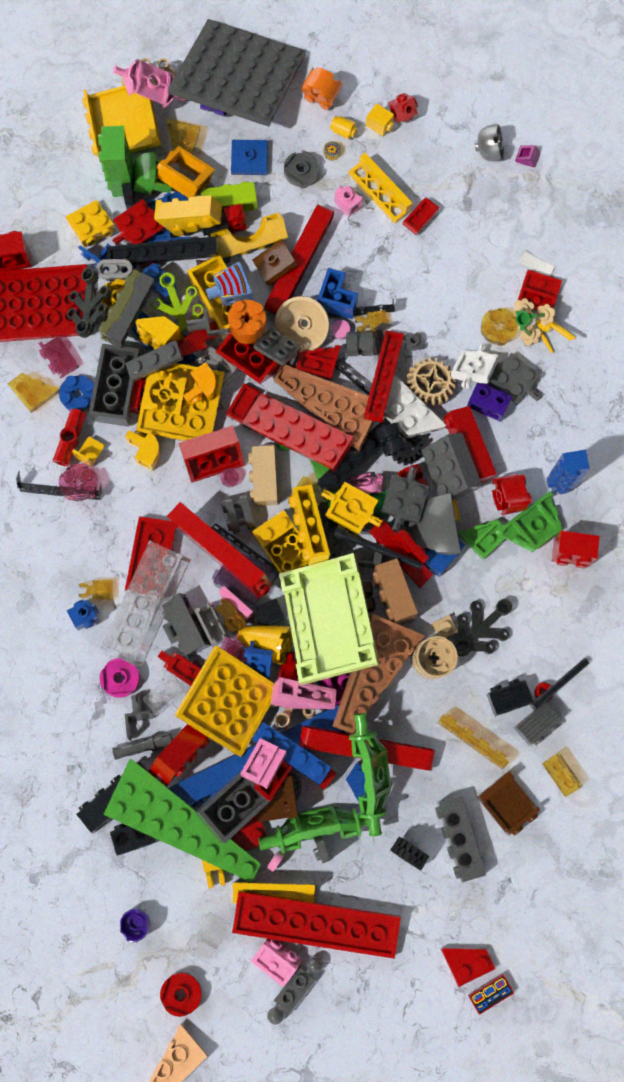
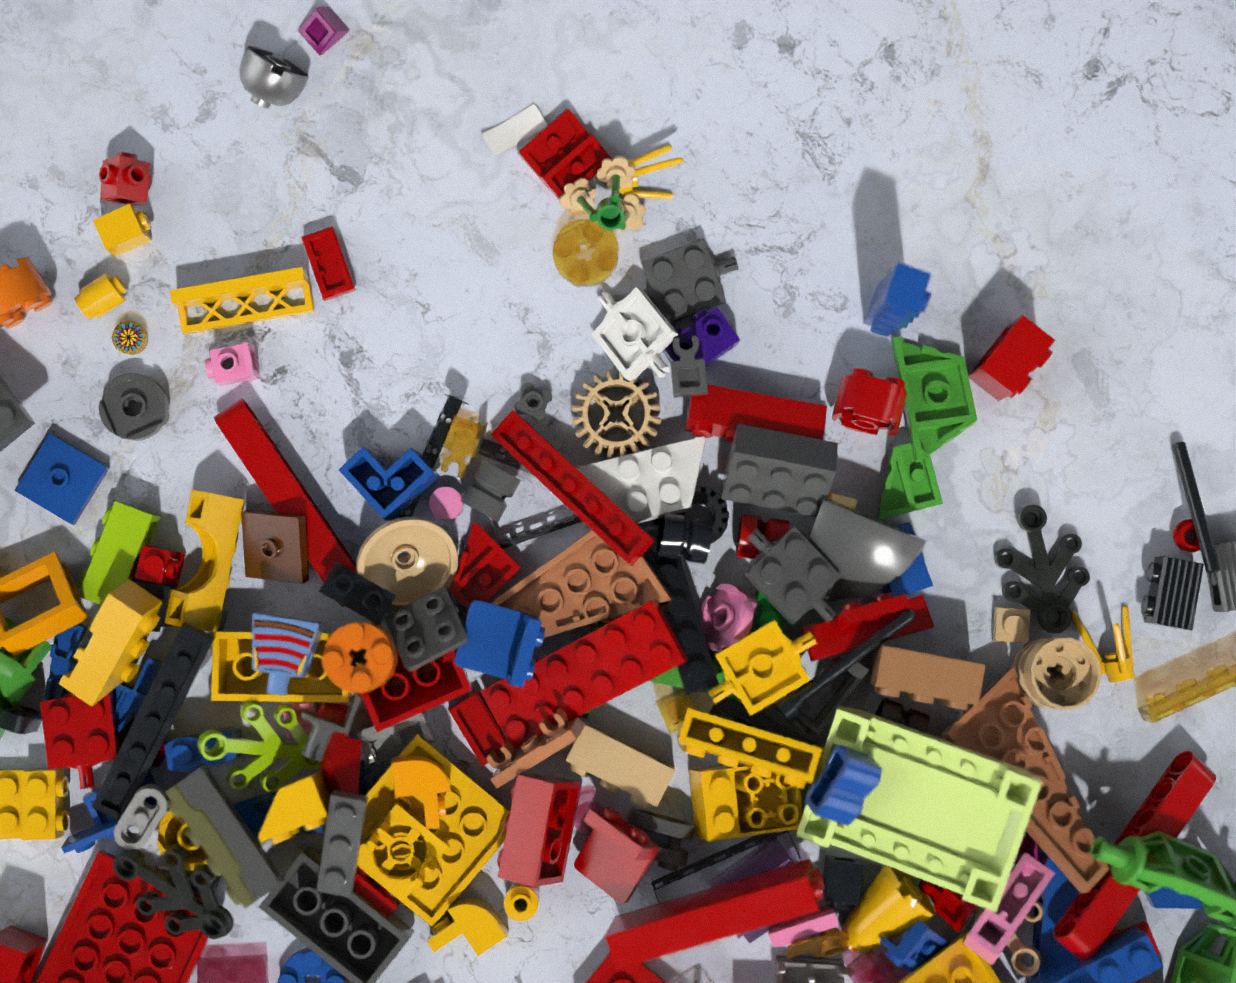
camera: 60 degrees left, 10 degrees up
(172, 470) = (523, 891): none -> yellow brick
(221, 493) = (615, 854): none -> bracket
(249, 429) = (535, 748): none -> nougat plate
(275, 307) = (357, 593): none -> black hinge
(290, 382) = (500, 642): none -> blue bracket
(318, 576) = (843, 785): none -> blue brick
(457, 690) = (1118, 663): none -> yellow plant
(472, 398) = (688, 373): none -> dark grey plate

